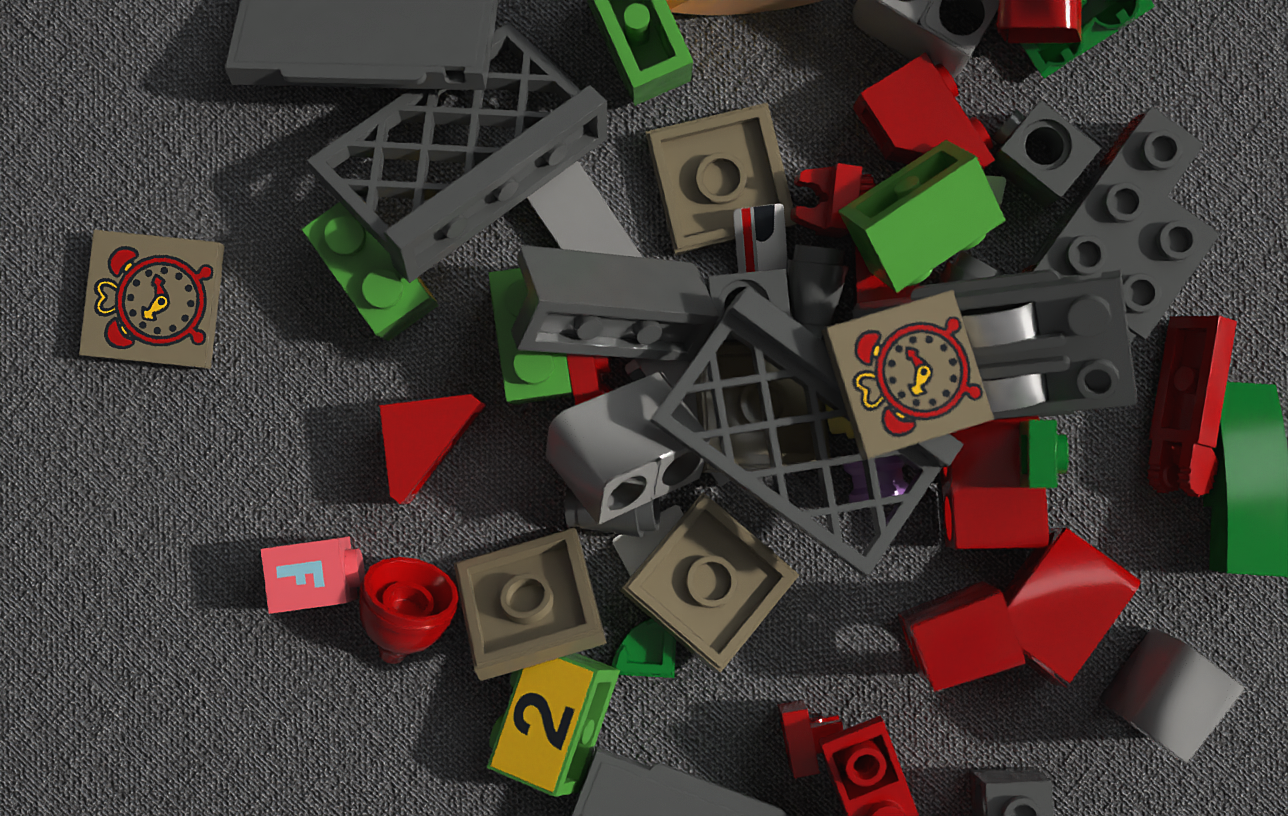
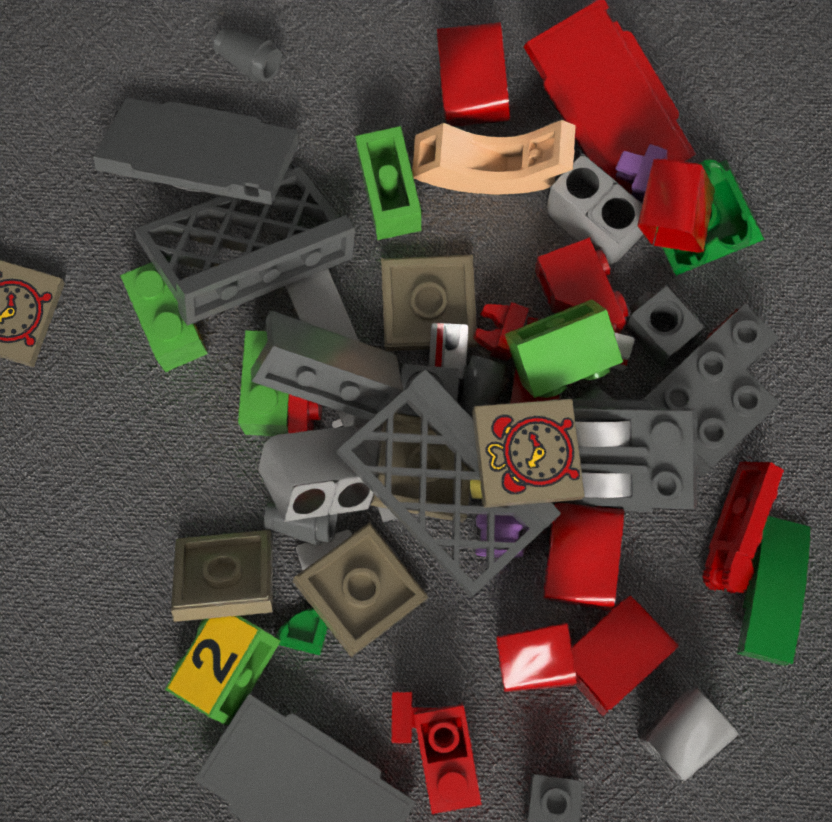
camera: 15 degrees right, 10 degrees down
(311, 574) = (70, 524): coral brick -> none
(405, 606) = (132, 561): red helmet -> none
(421, 437) = (173, 441): red slope -> none
(1041, 454) = (618, 532): green plate -> none

